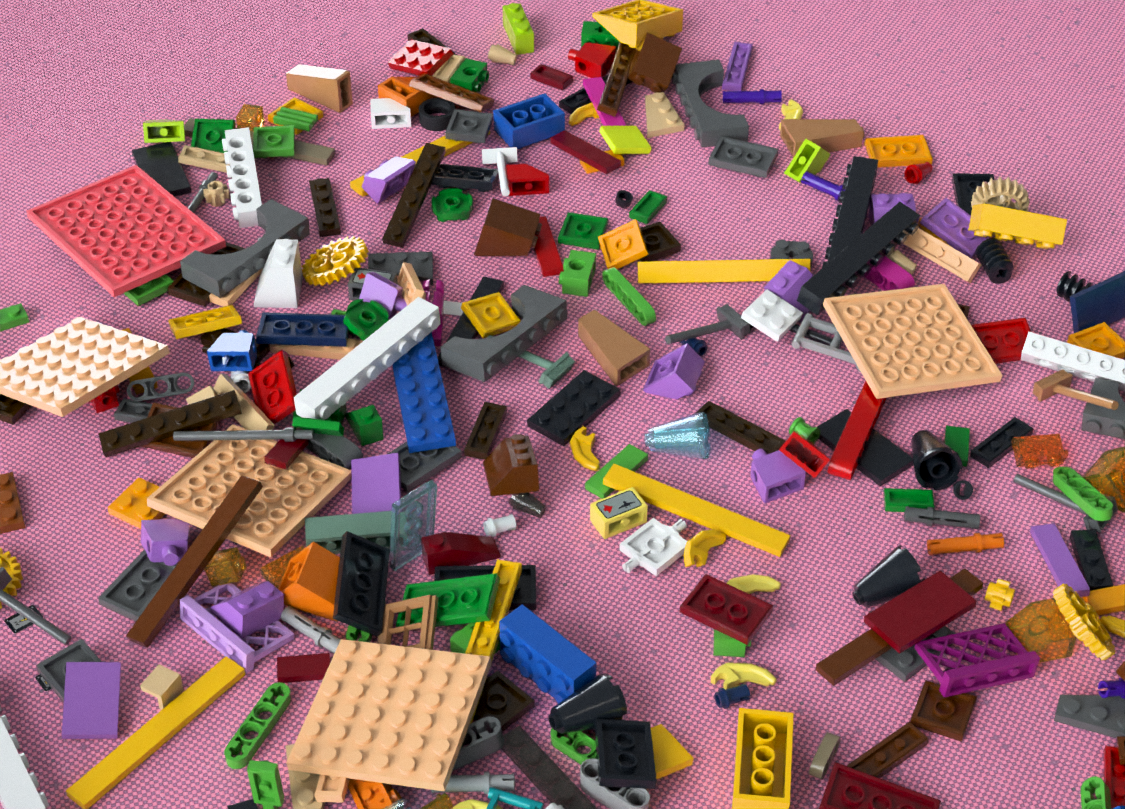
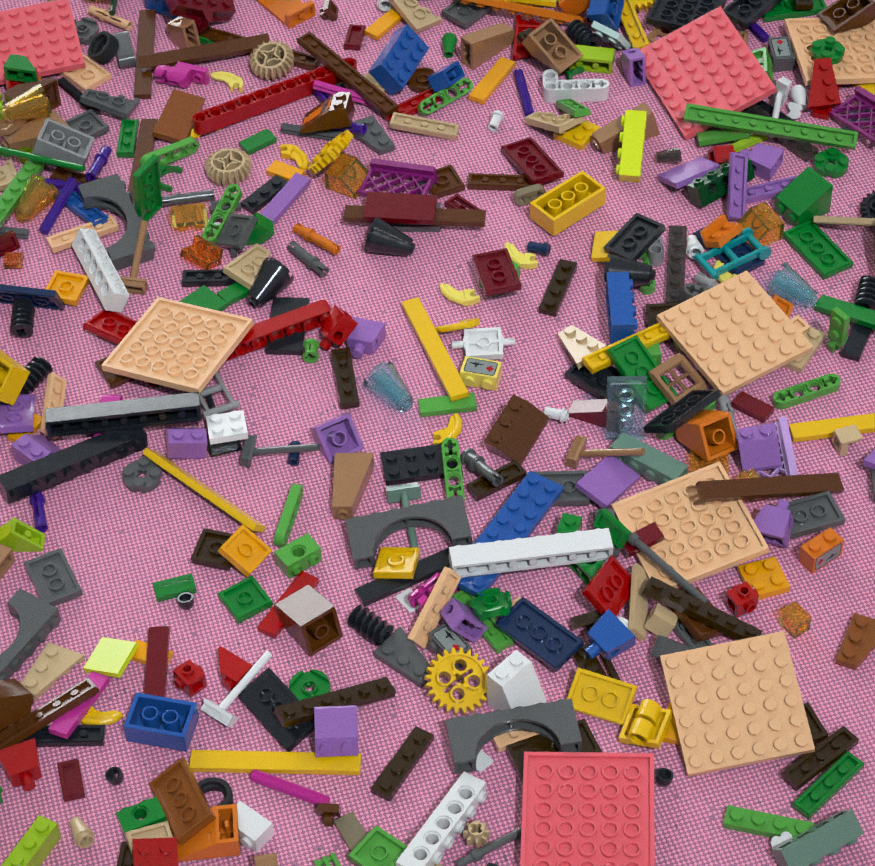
camera: 135 degrees left, 5 degrees up
(79, 478) = (794, 619): none -> clear yellow brick
(98, 303) = (664, 777): none -> black hinge
(99, 552) = (821, 550): none -> orange brick
(143, 460) = (742, 599): none -> red brick
(145, 319) = (646, 724): none -> yellow plate
(343, 148) = (328, 811): none -> reddish brown tile
(388, 150) = (288, 787): none -> dark pink axle
(443, 506) = (578, 450): none -> medium nougat piece
(453, 260) = (370, 625): none -> black piece
(469, 126) = (211, 752): dark grey plate -> none
(516, 425) = (477, 464): none -> dark grey pin
(522, 89) = (111, 777): none -> black hinge
(547, 155) = (189, 678): none -> red brick
(547, 410) = (450, 473): none -> bright green beam
(553, 602) = (578, 344): none -> wing
(658, 667) = (558, 287): none -> dark brown plate
(877, 697) = (451, 204): none -> dark red tile
(897, 499) = (309, 282): green tile -> none
(966, 412) = (205, 298): none -> green tile
(980, 466) = (246, 266): none -> tan wing
(999, 594) = (339, 201): yellow gear -> none
(1028, 506) = (262, 230): none -> green slope
(1039, 481) = (236, 231): none -> dark grey tile
(1061, 765) = (424, 126): none -> tan tile

